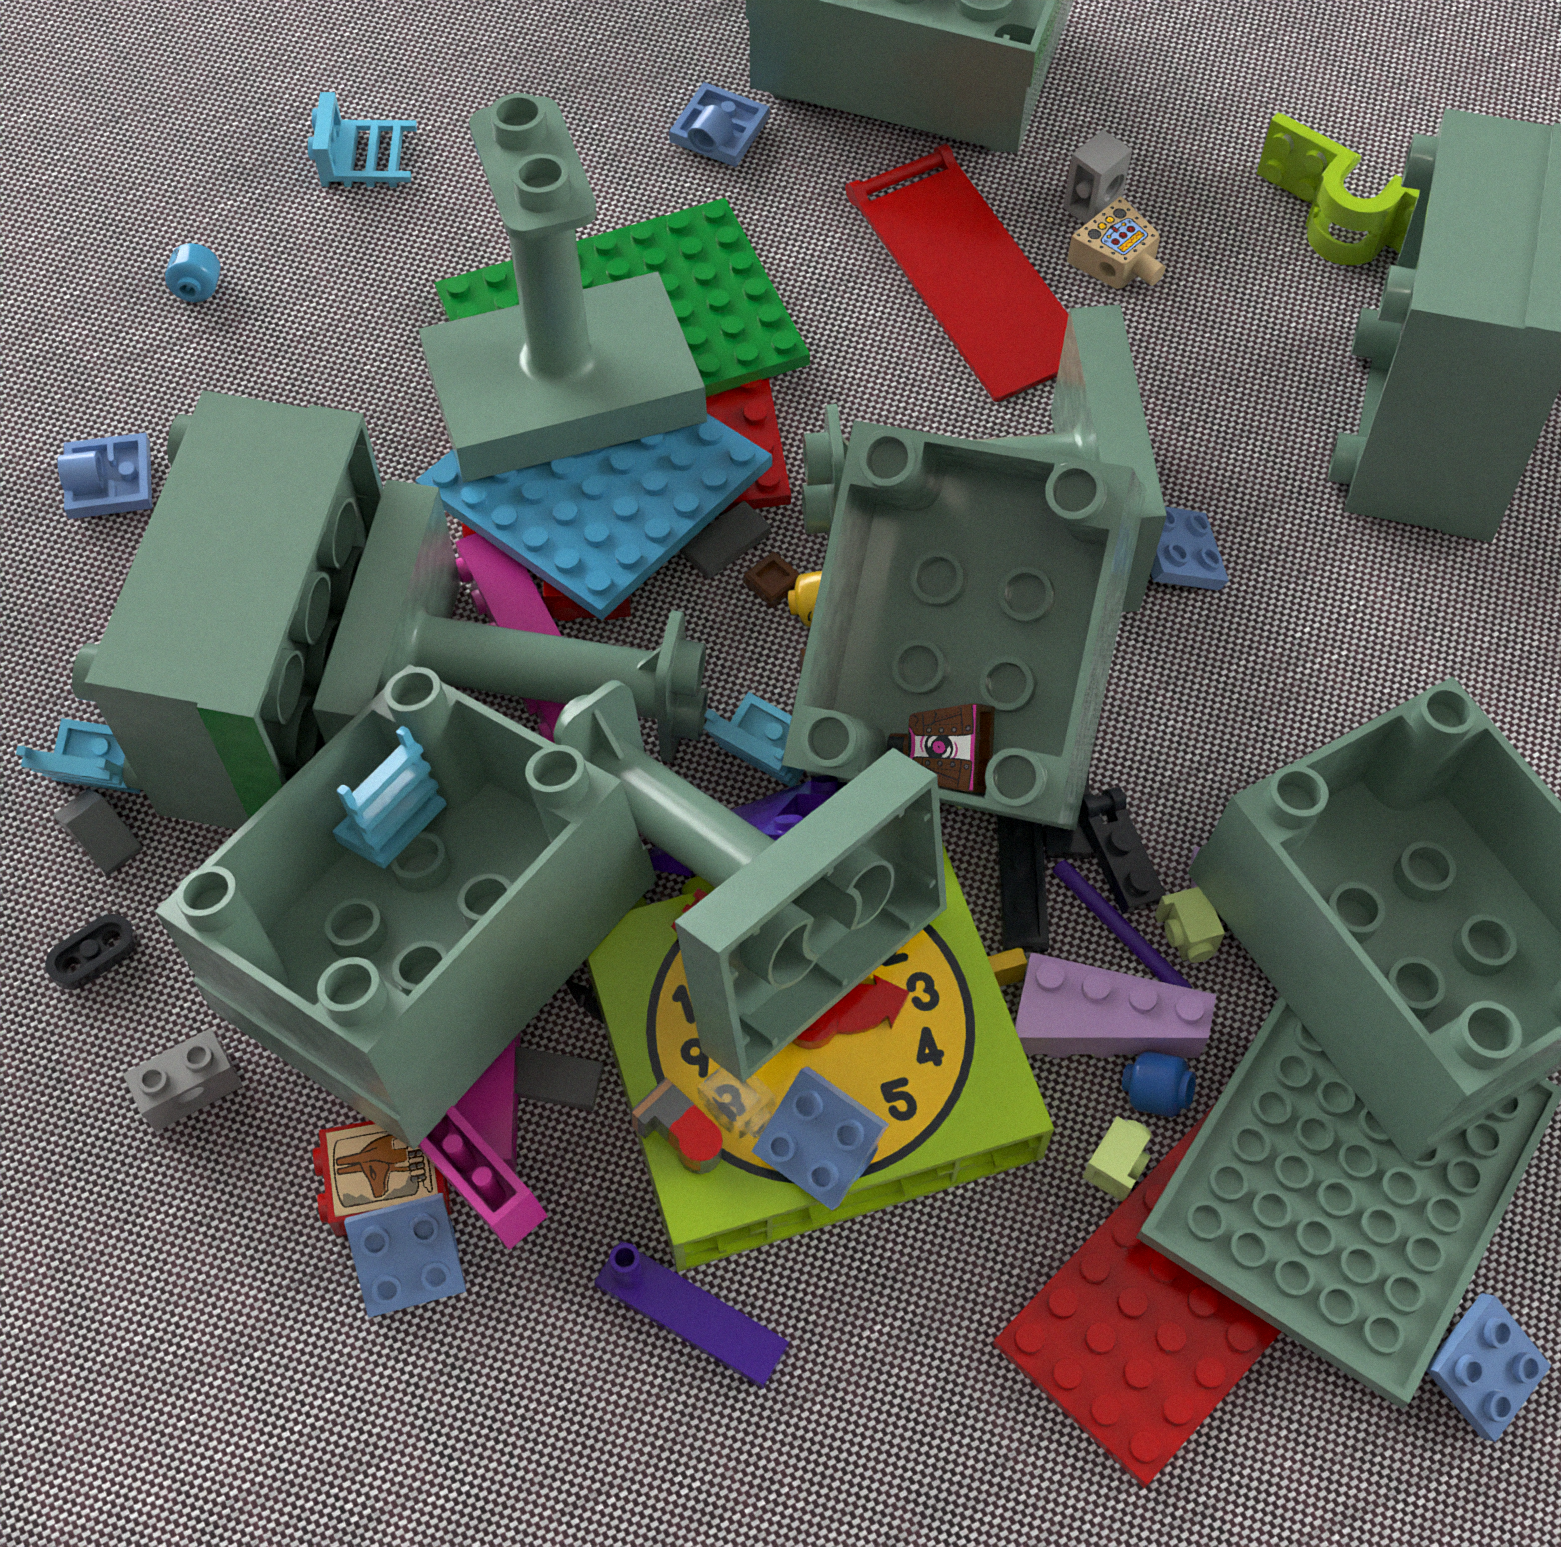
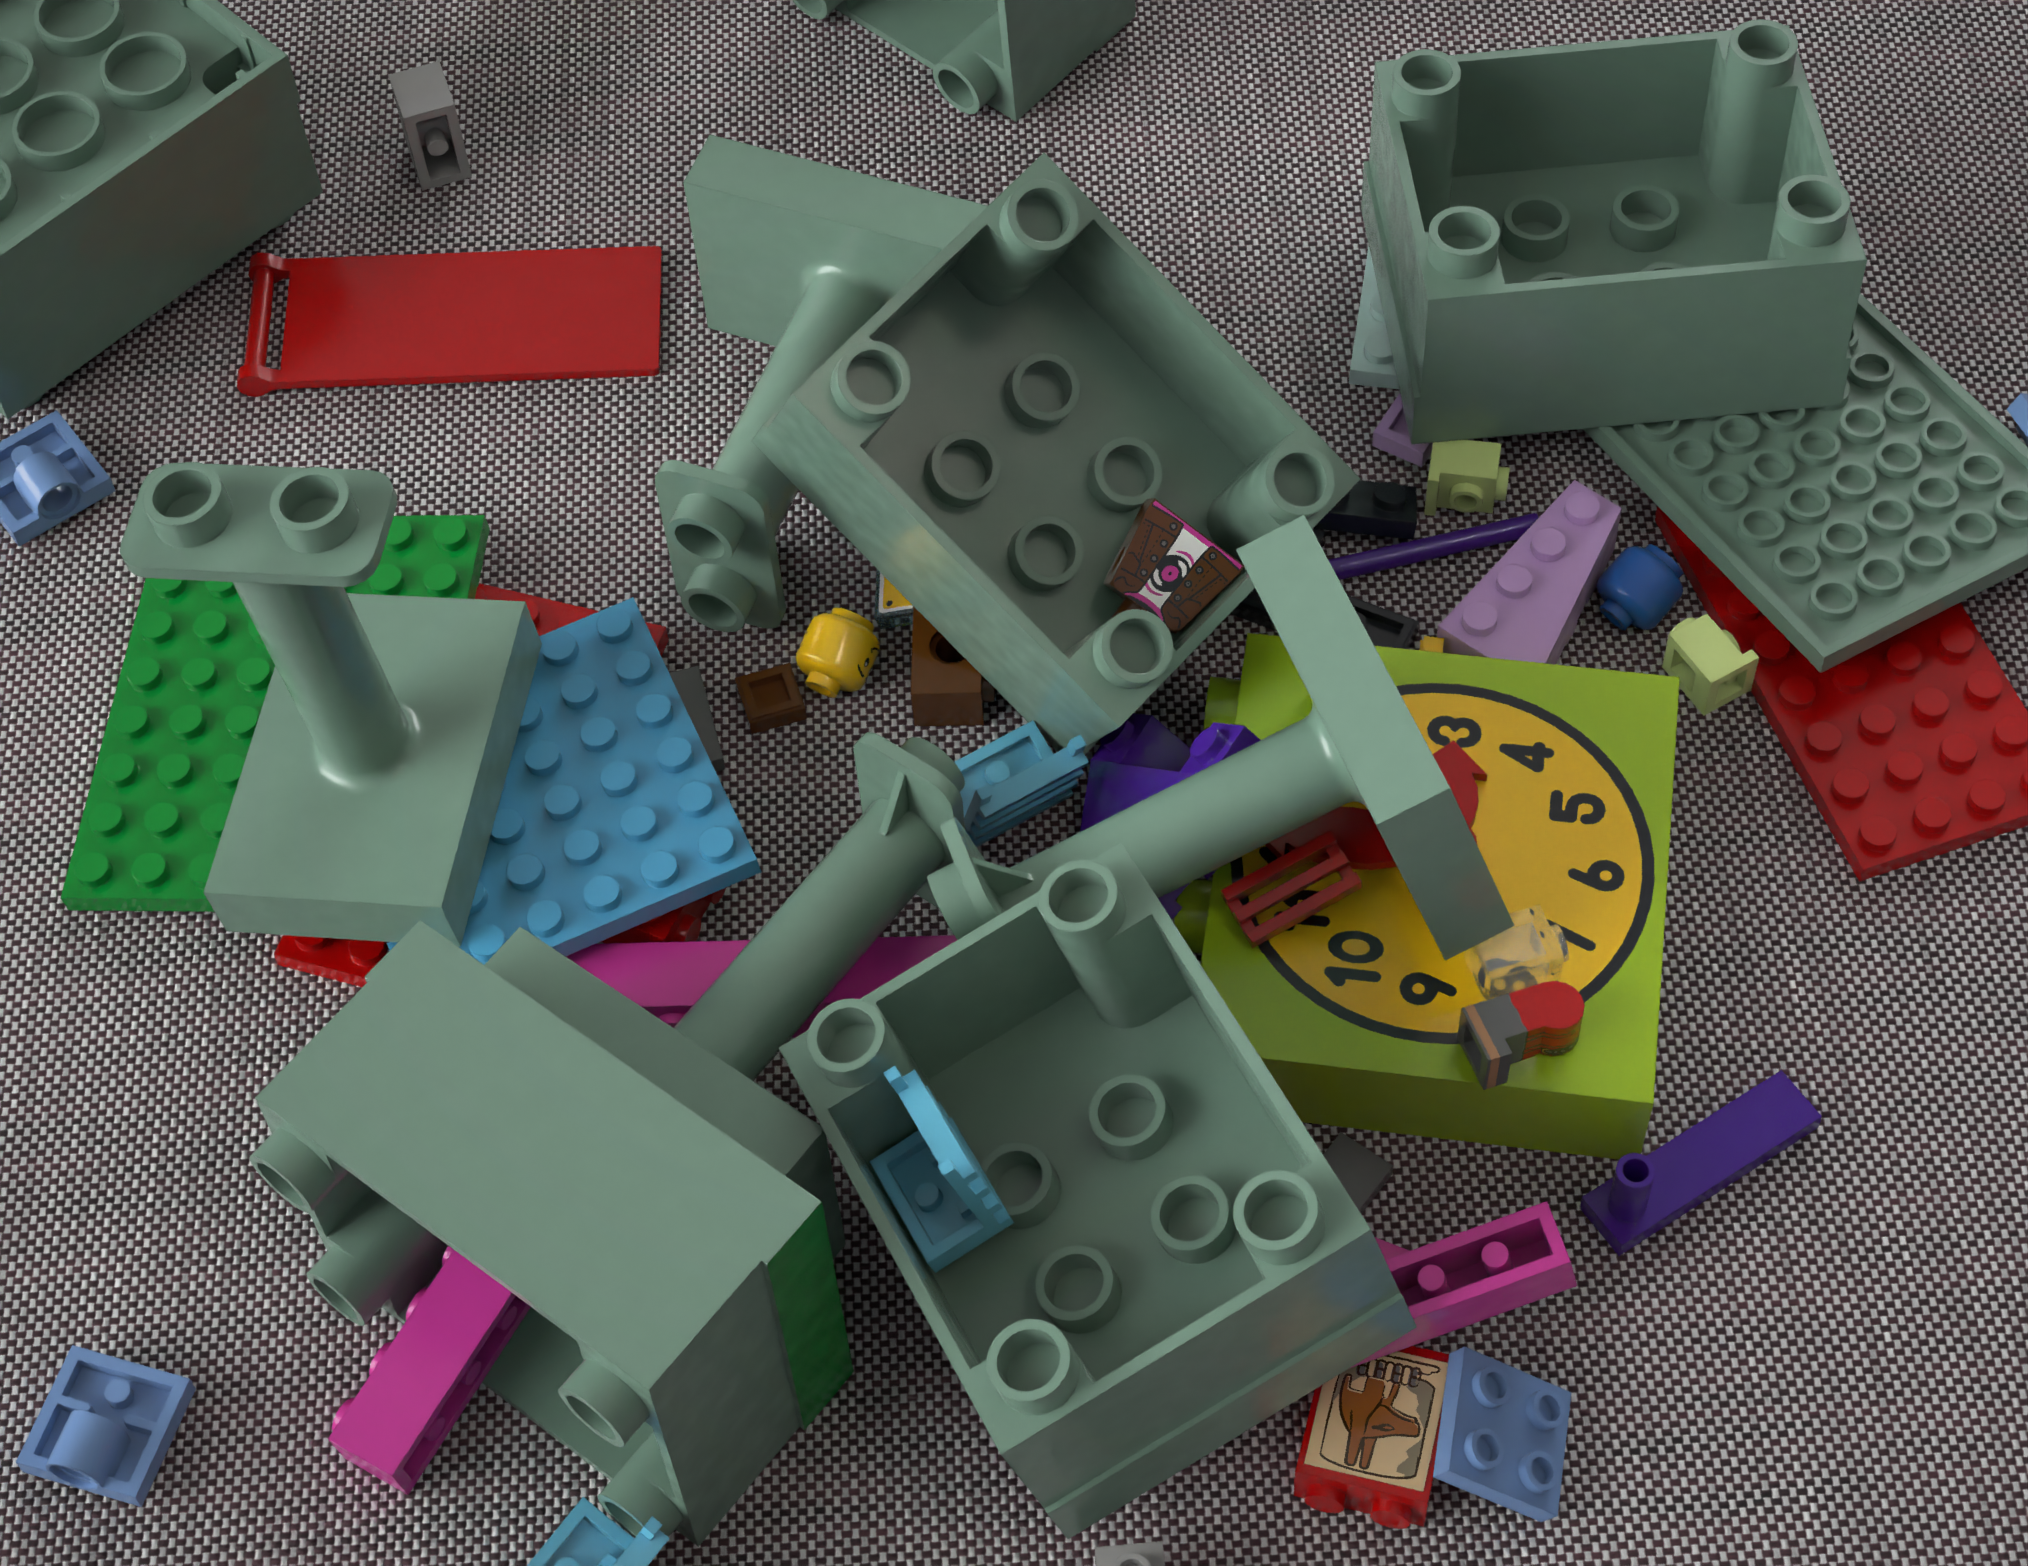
camera: 60 degrees left, 5 degrees down
(820, 1138) = (1606, 886): medium blue plate -> none
(1117, 247) = (532, 155): tan torso -> none

